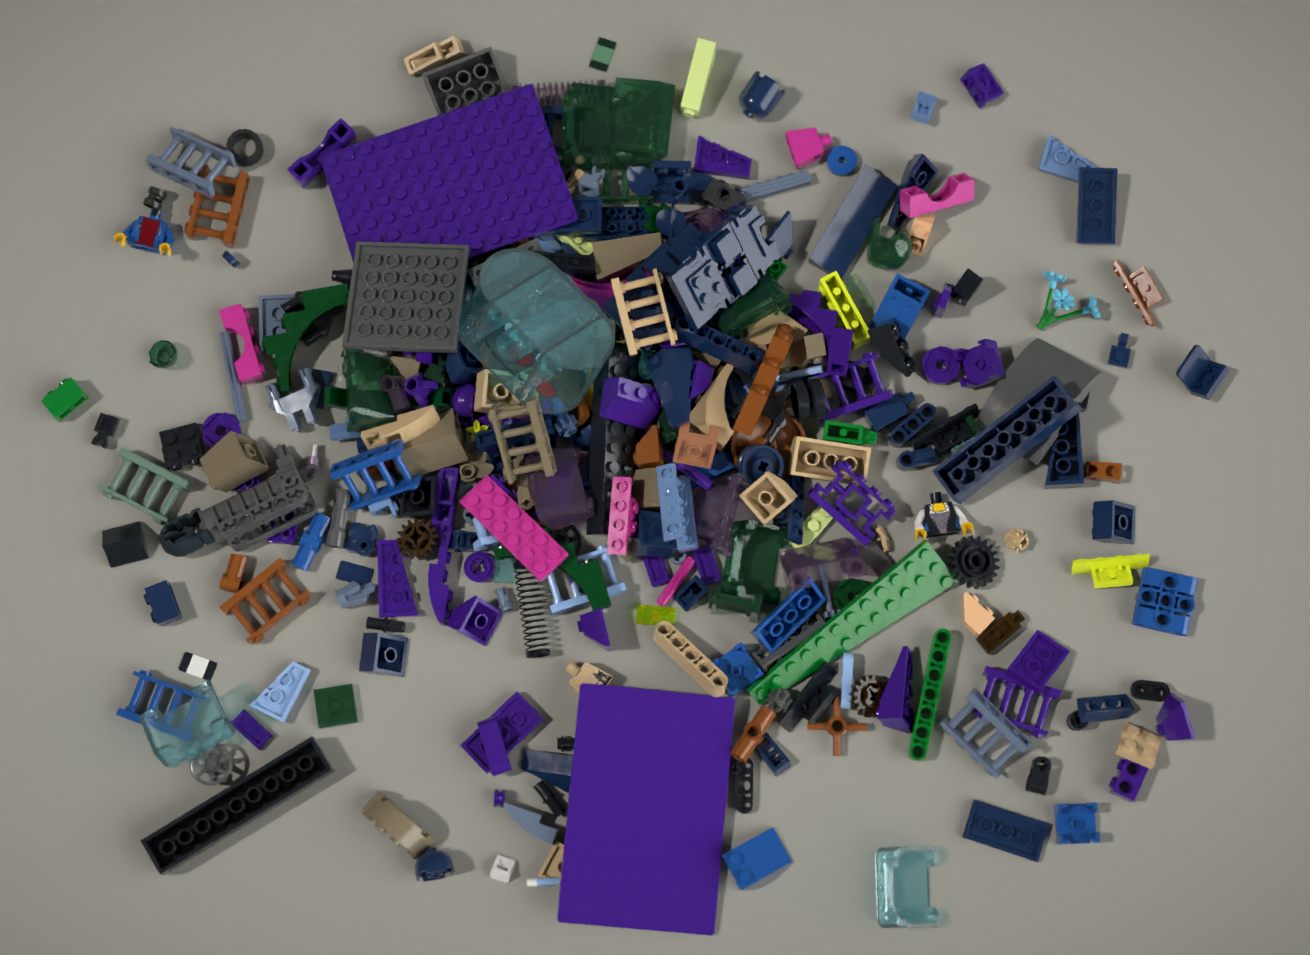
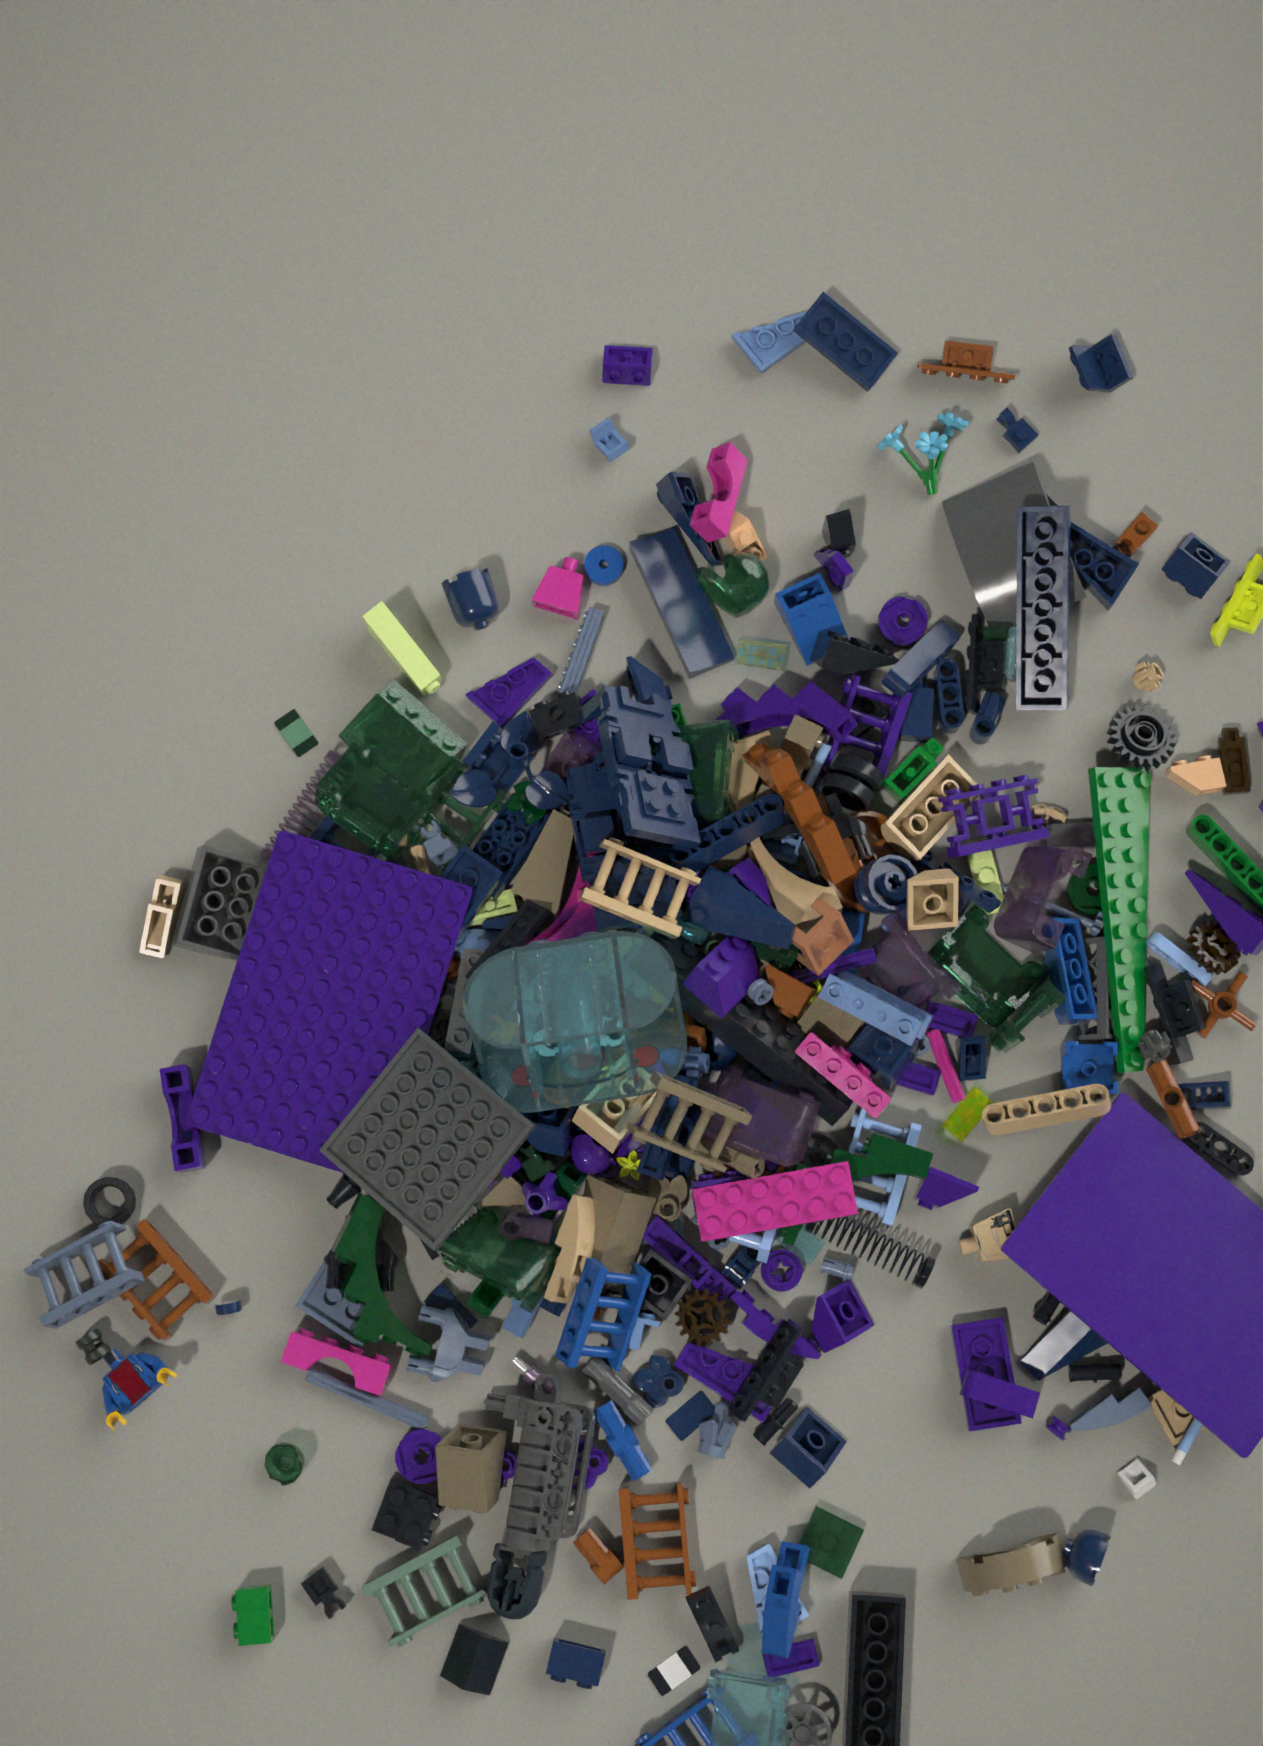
camera: 55 degrees left, 0 degrees up
(239, 667) = (711, 1623): none -> black plate
(276, 698) = (781, 1600): none -> blue slope
(411, 600) = (770, 1375): none -> black bracket
(639, 428) = (760, 991): none -> sand blue bush
(847, 312) = (761, 674): neon yellow brick -> none
(920, 389) = (921, 659): none -> dark blue beam
(940, 519) = (1071, 738): torso -> none
(980, 363) = (933, 578): dark purple panel -> none

